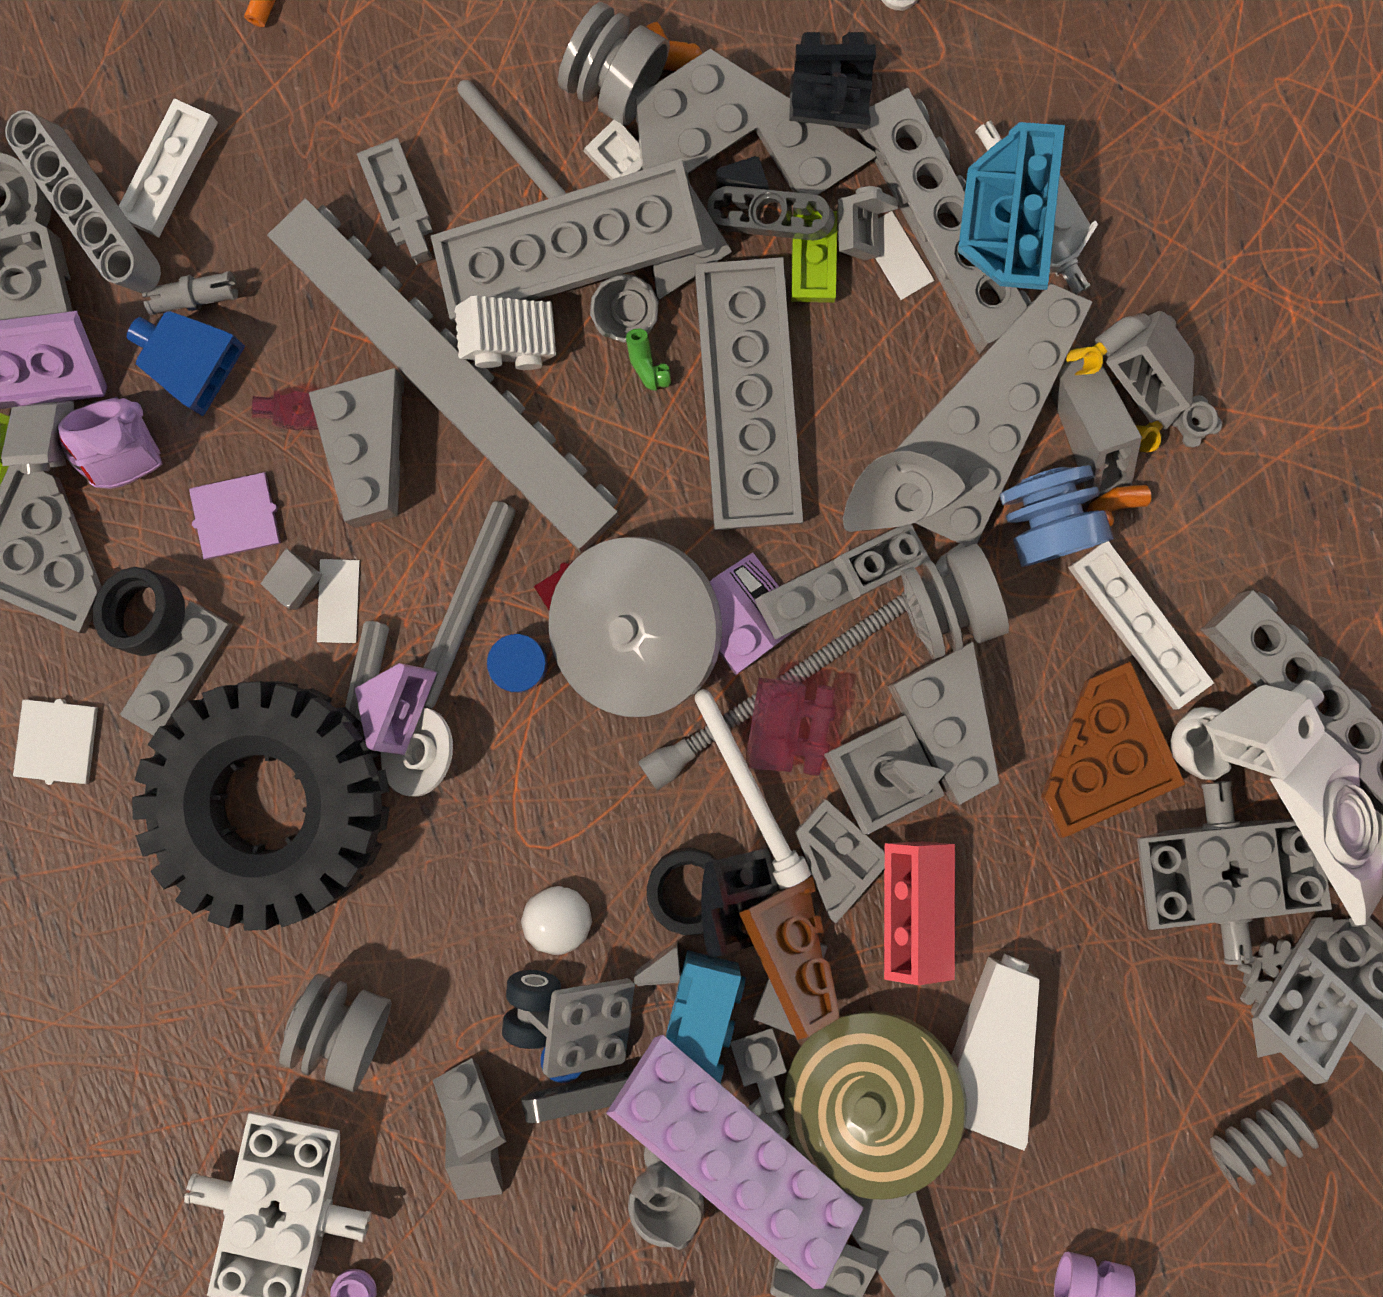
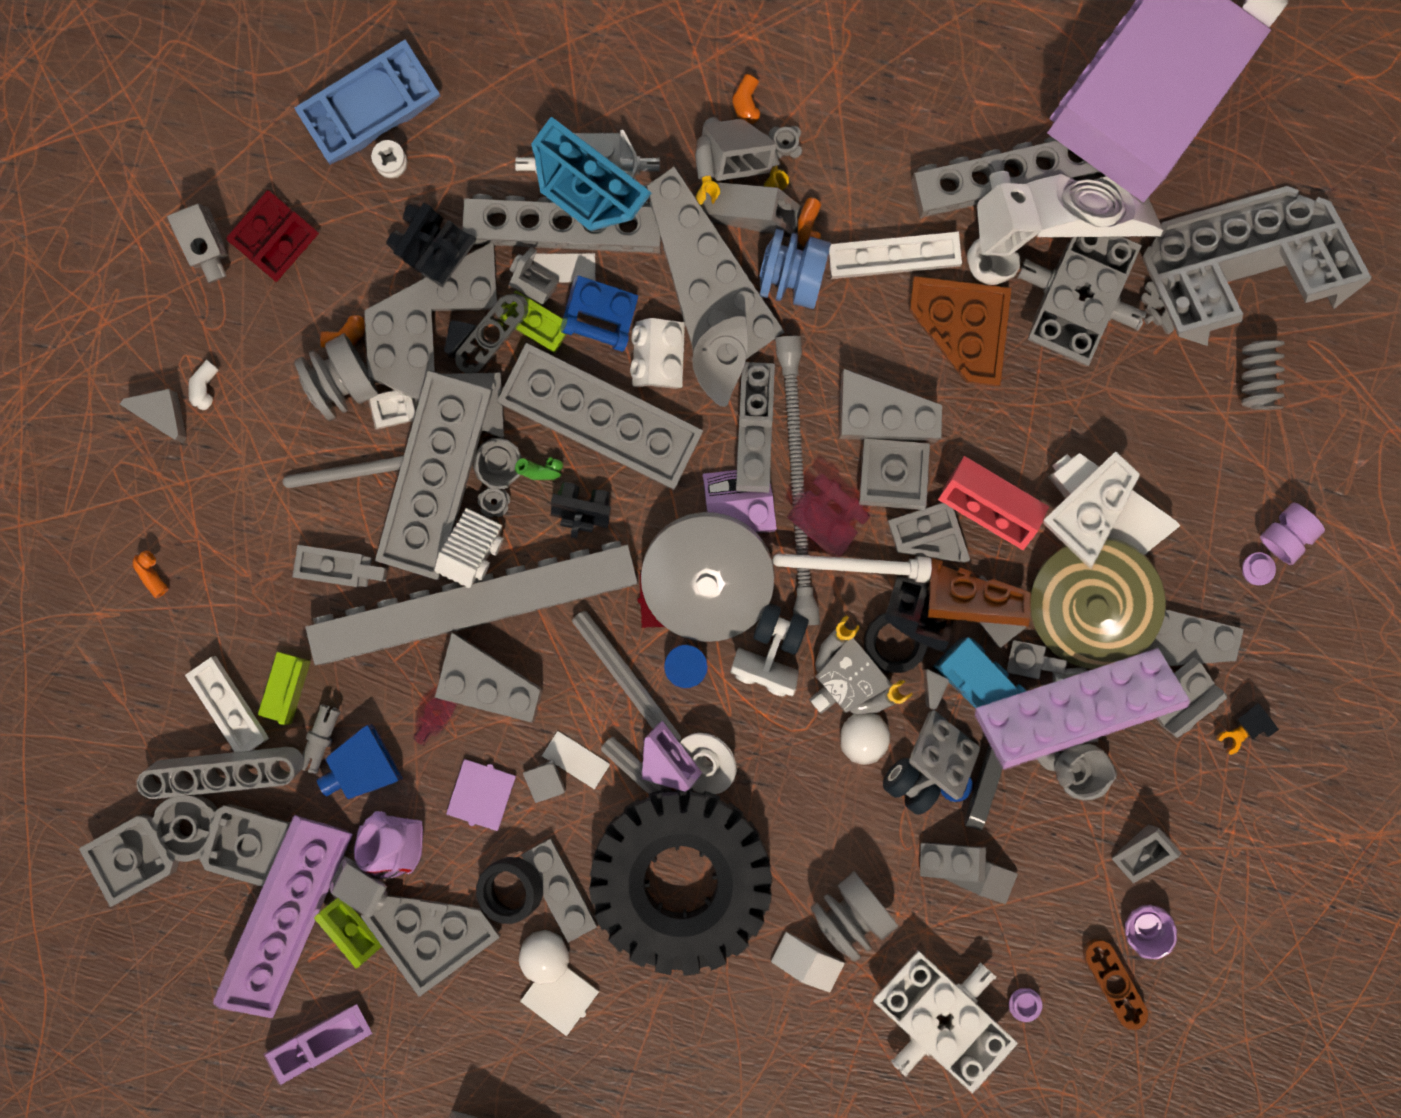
camera: 60 degrees left, 0 degrees up
(87, 696) = (543, 957): none -> white hair
(225, 221) = (284, 688): none -> lime panel
(255, 1006) = (807, 963): none -> white slope
(563, 757) = (755, 668): none -> white plate
(567, 328) = (490, 510): none -> light grey plate
(617, 864) = (851, 677): none -> light grey torso
(621, 436) = (579, 513): none -> black hips
(862, 418) = (658, 353): none -> white bracket
(881, 320) = (602, 303): none -> blue plate
(912, 778) = (907, 458): light grey slope -> none
(951, 602) = (812, 365): light grey wheel -> none
(981, 1035) = (1093, 508): none -> white wing
(1028, 1271) = (1258, 568): none -> lavender plate
(1214, 343) = (743, 101): none -> orange arm

